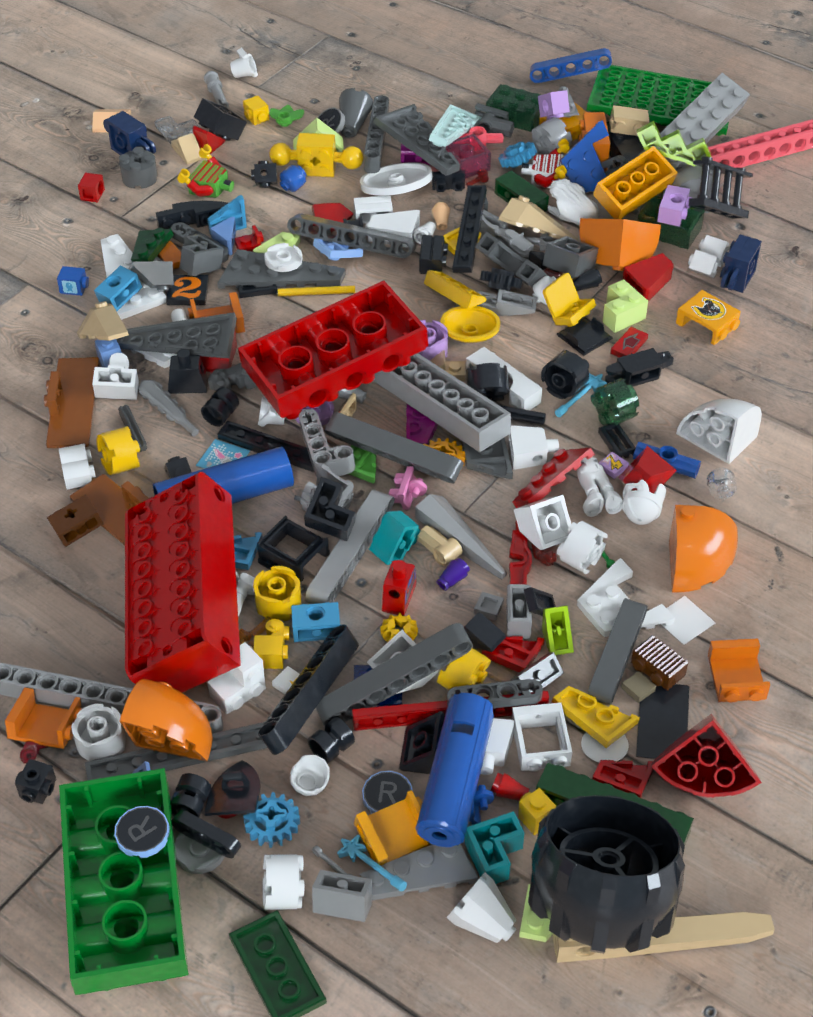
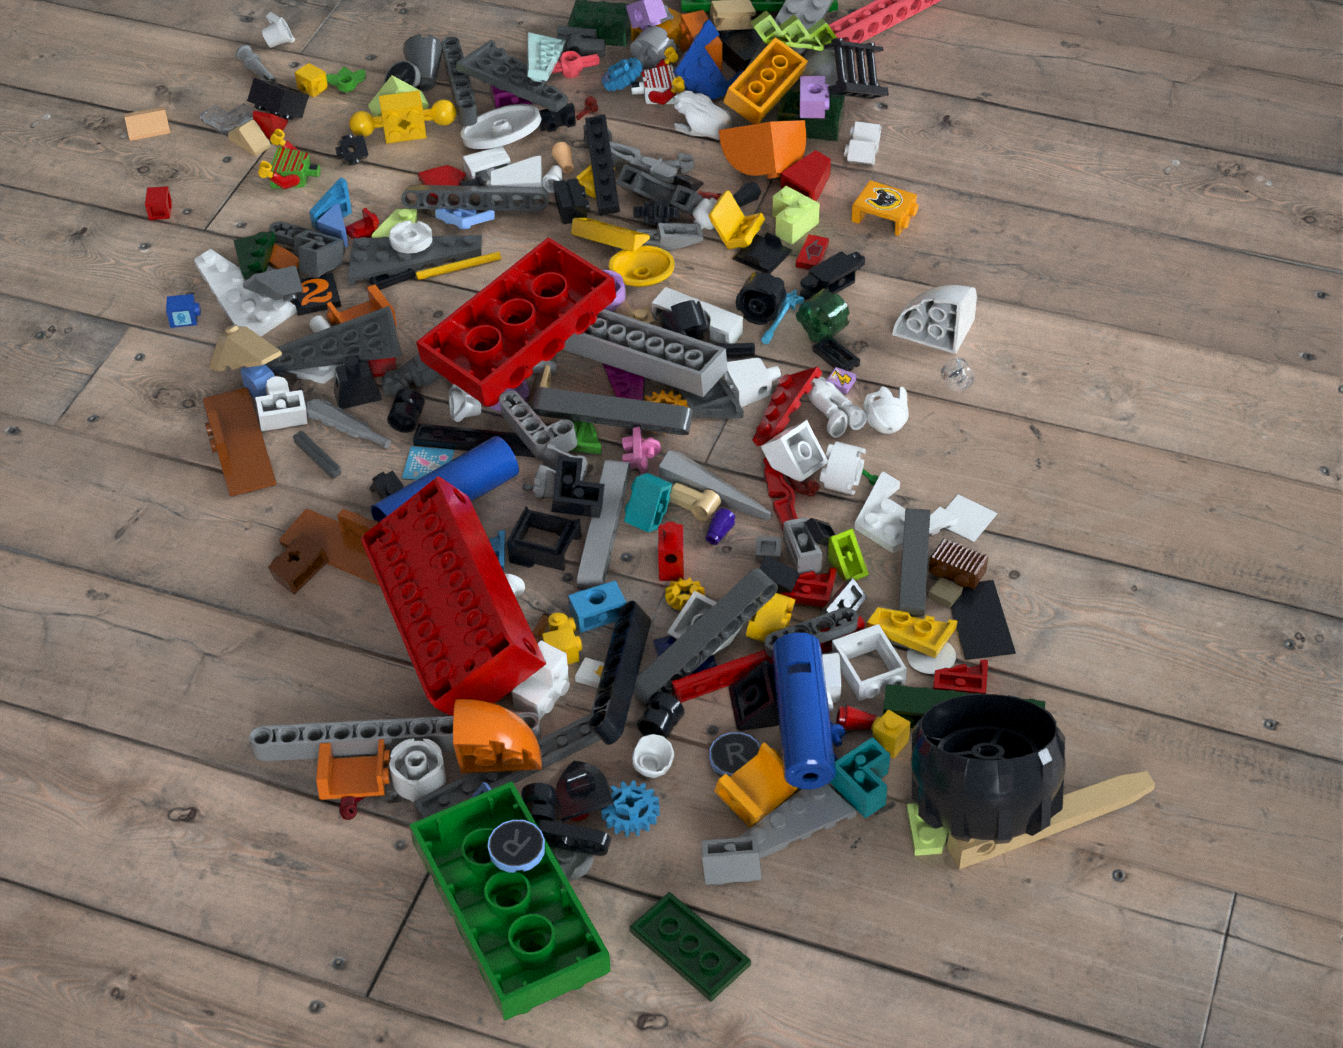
camera: 15 degrees left, 0 degrees up
(35, 781) = (370, 833): black brick -> none
(75, 466) = (273, 507): white brick -> none
(118, 287) = (241, 306): dark azure brick -> none
(118, 450) = (315, 480): yellow brick -> none
(127, 133) = (180, 138): dark blue brick -> none
(138, 168) = (204, 171): dark grey brick -> none
(189, 213) = (284, 209): black slope -> none
(276, 592) = (546, 586): yellow brick -> none
(282, 882) = (667, 862): white brick -> none
(292, 178) = (384, 147): blue head -> none
(318, 852) = (687, 827): light grey hinge -> none
(354, 848) = (722, 815): medium azure piece -> none
(470, 154) = (573, 82): clear pink brick -> none
(484, 911) = (875, 838): white cone -> none
(512, 185) = (641, 117): dark green brick -> none
(525, 214) = (657, 137): tan wedge -> none
(570, 256) = (720, 173): dark grey brick -> none
(609, 164) = (730, 72): dark grey beam -> none
(648, 467) = (880, 373): red slope -> none
(683, 464) = (894, 362): blue piece -> none
(700, 546) = (958, 441): orange brick -> none
(706, 763) = (1040, 645): red brick -> none
(737, 670) = (1035, 553): orange panel -> none
(740, 263) = (899, 144): dark blue brick -> none

